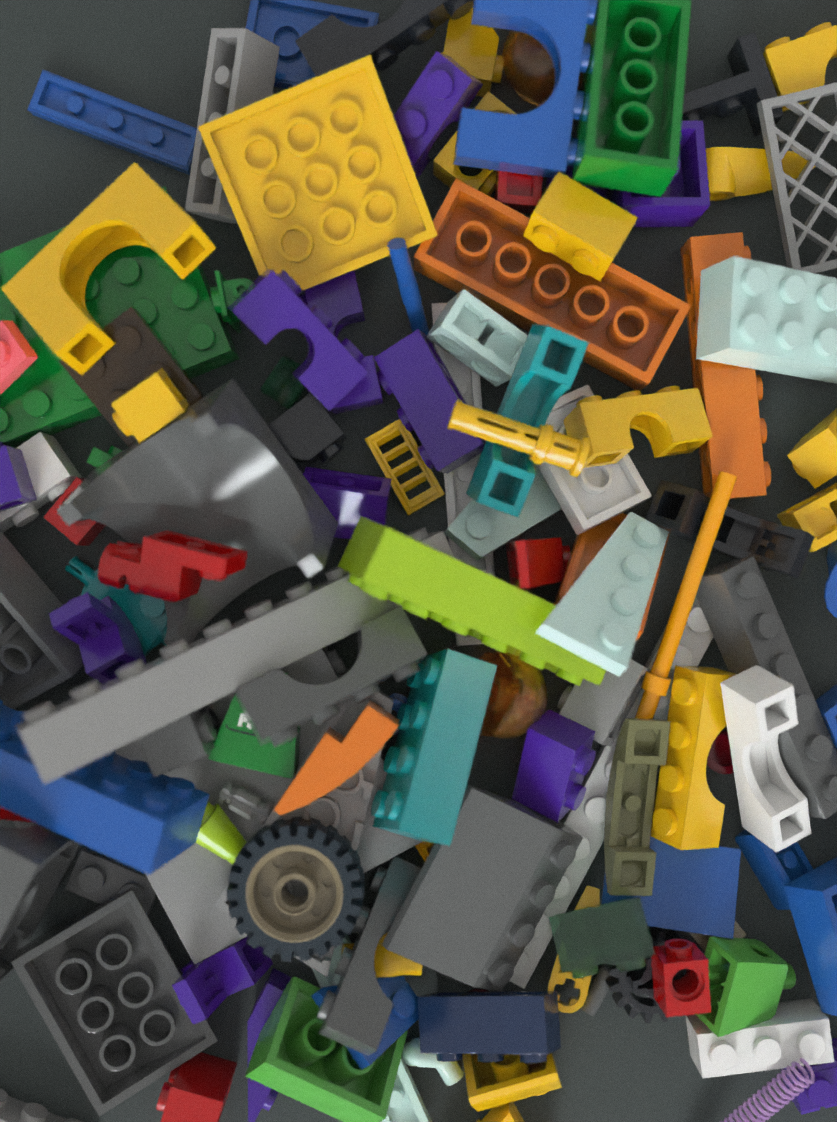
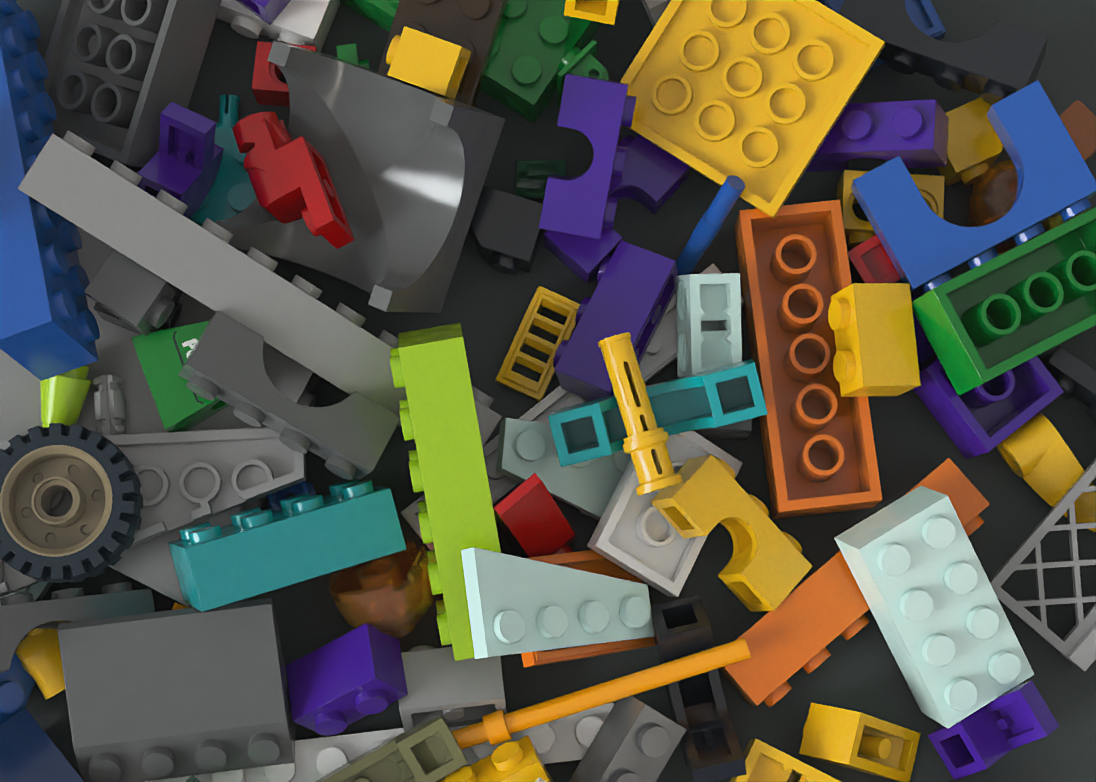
camera: 55 degrees right, 10 degrees down
(339, 757) = (215, 456): orange slope -> none
(350, 497) = (478, 309): dark purple brick -> none

